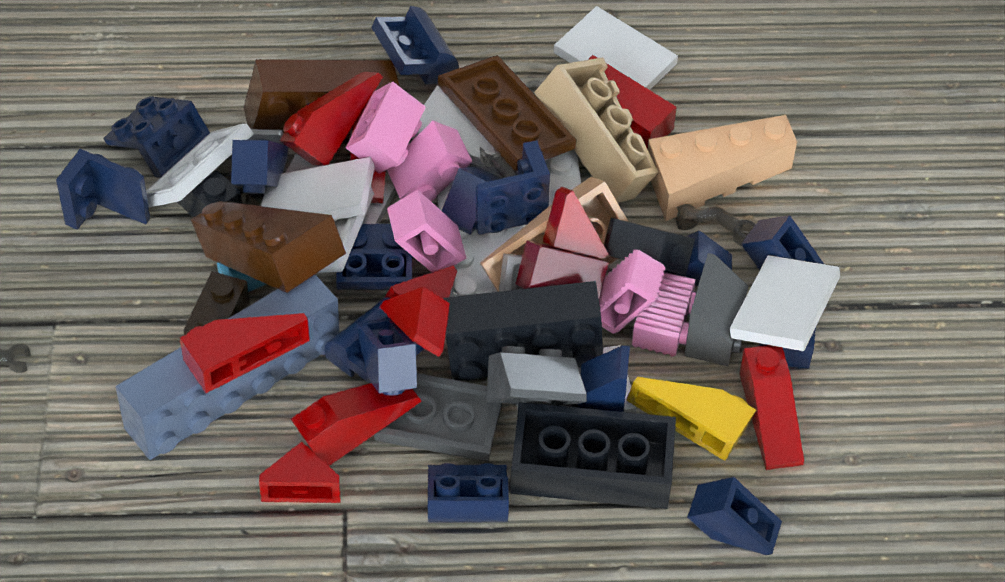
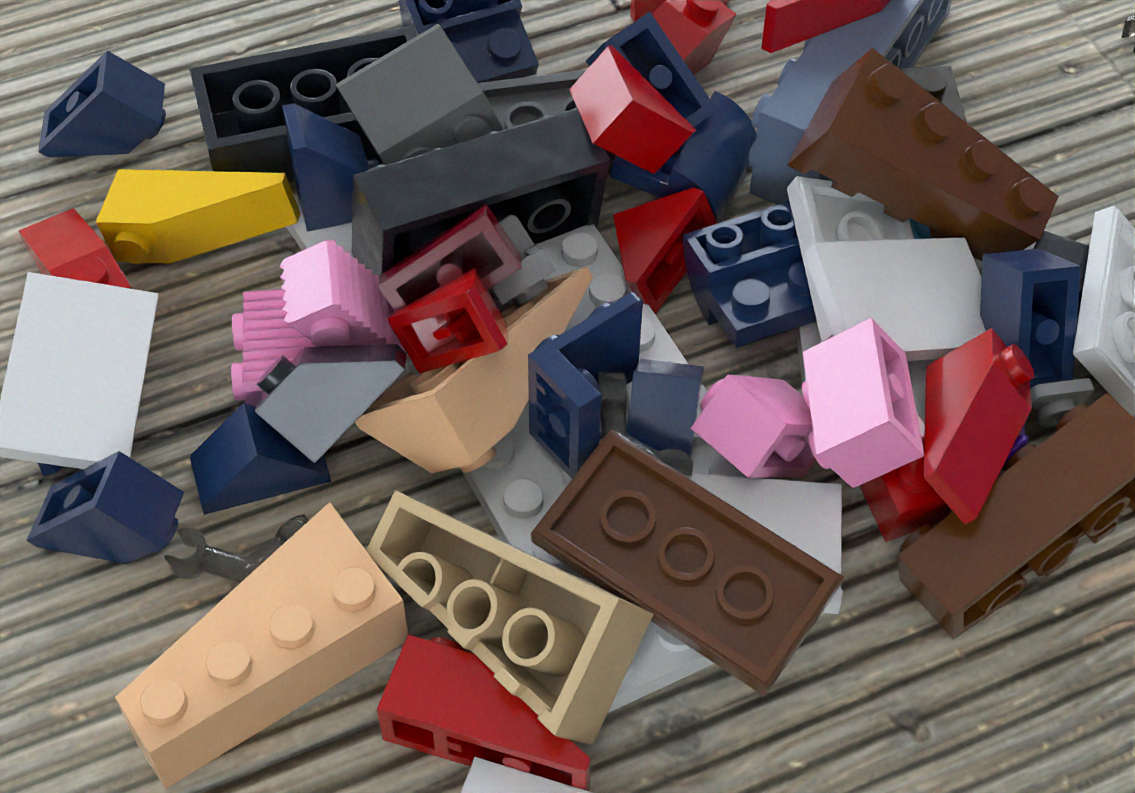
camera: 160 degrees right, 0 degrees up
(415, 45) = (928, 662): dark blue brick -> none
(426, 232) = (700, 288): bright pink brick -> none
(713, 312) = (192, 354): dark grey slope -> none

